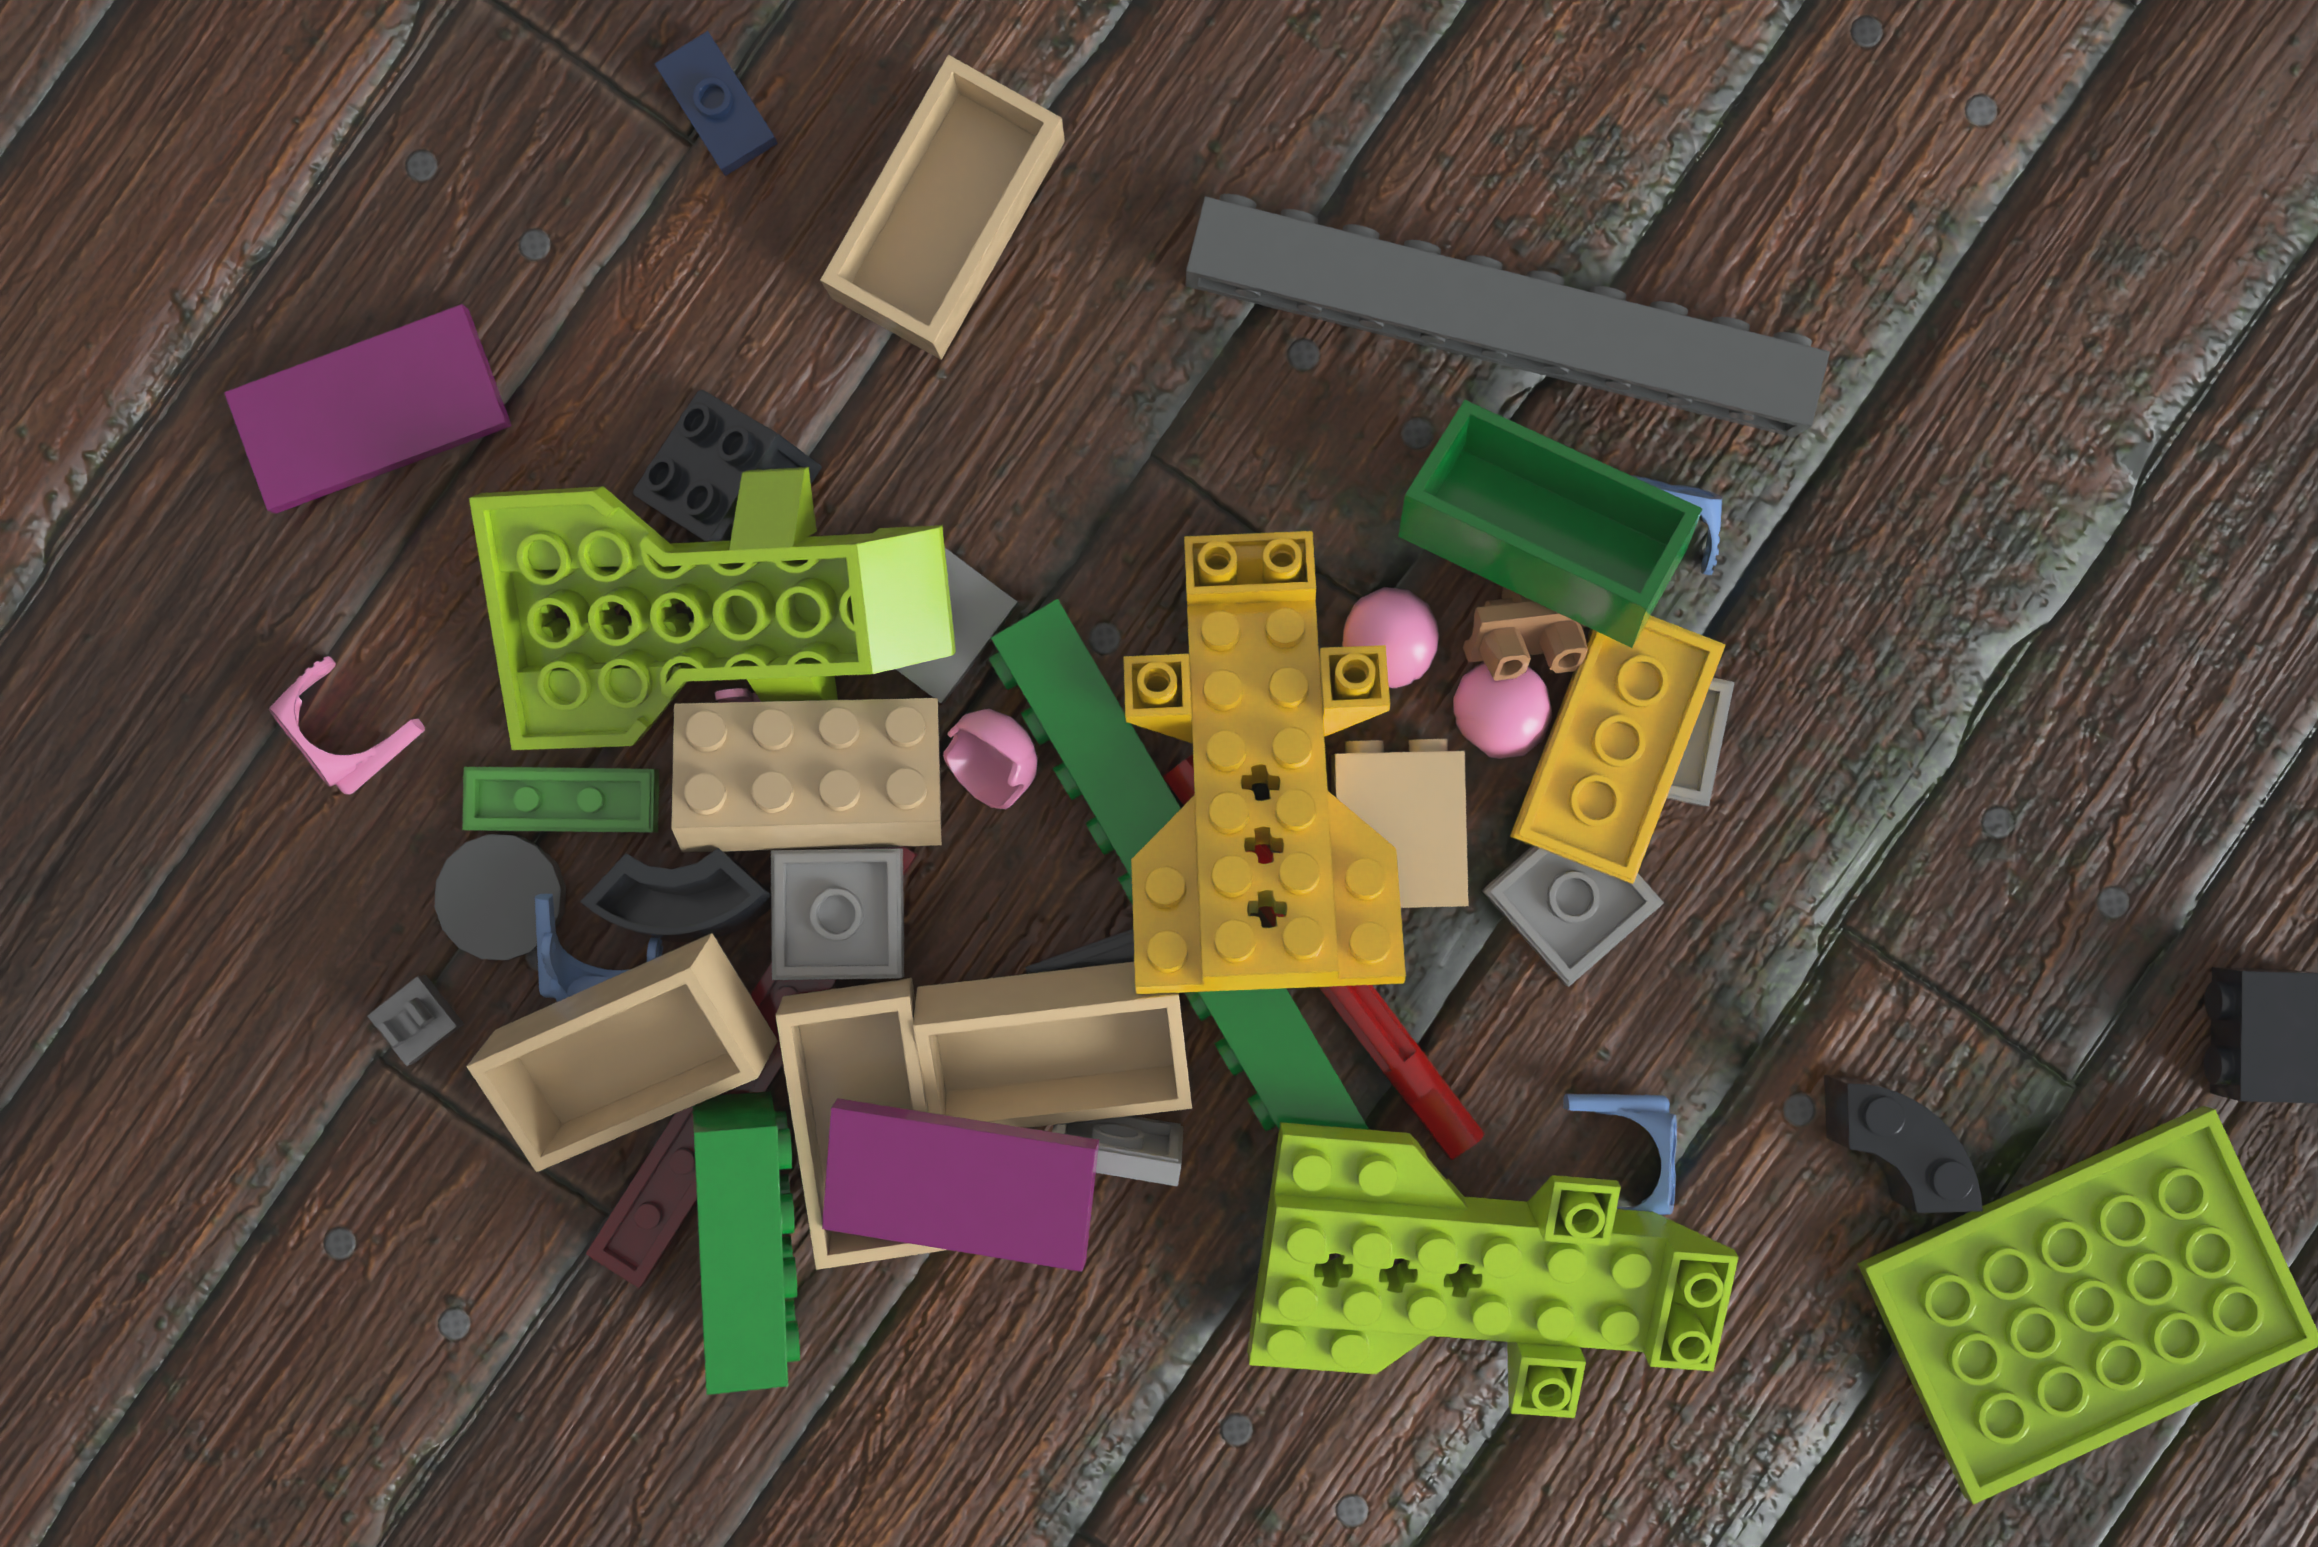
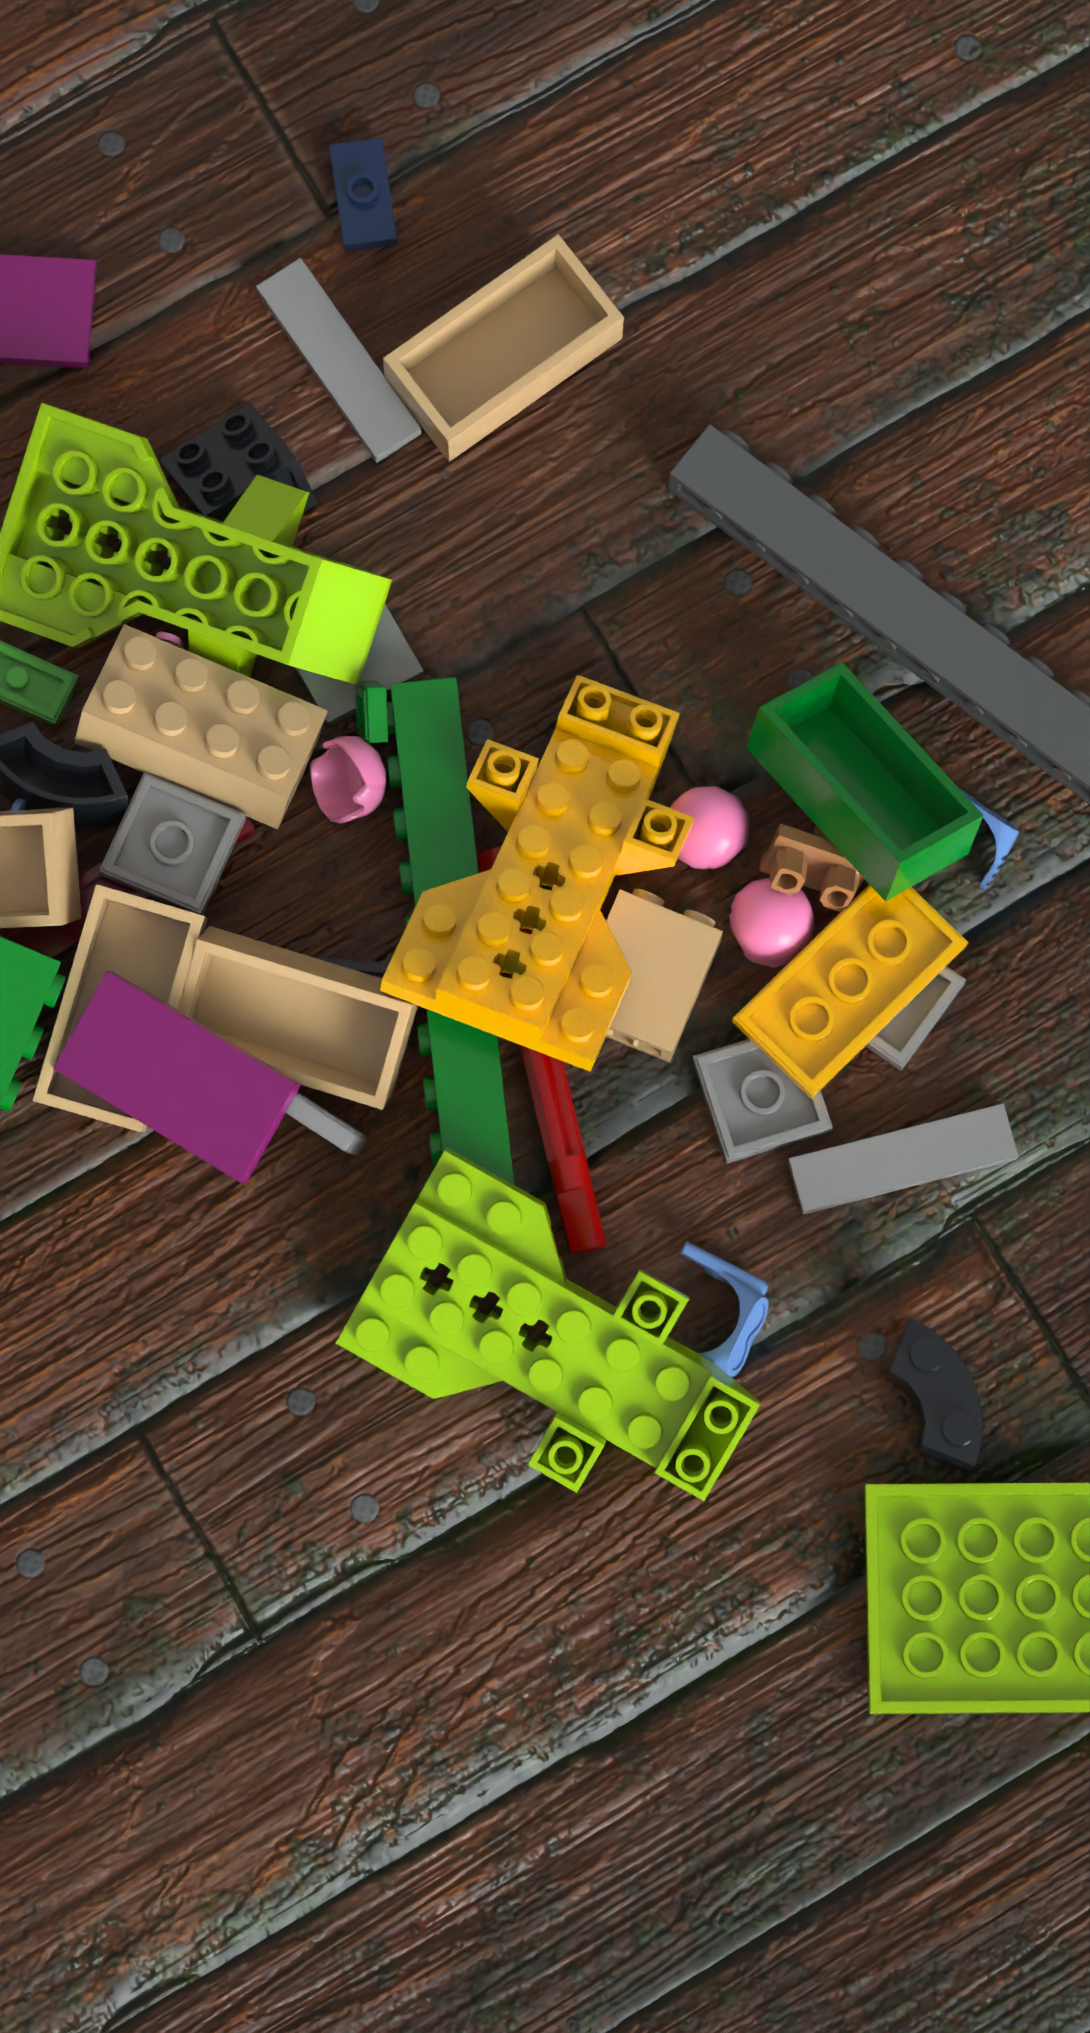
camera: 20 degrees right, 10 degrees down
(772, 299) = (338, 360): none -> light grey tile
(983, 675) = (371, 711): none -> green tile
(1749, 901) = (902, 1159): none -> light grey tile

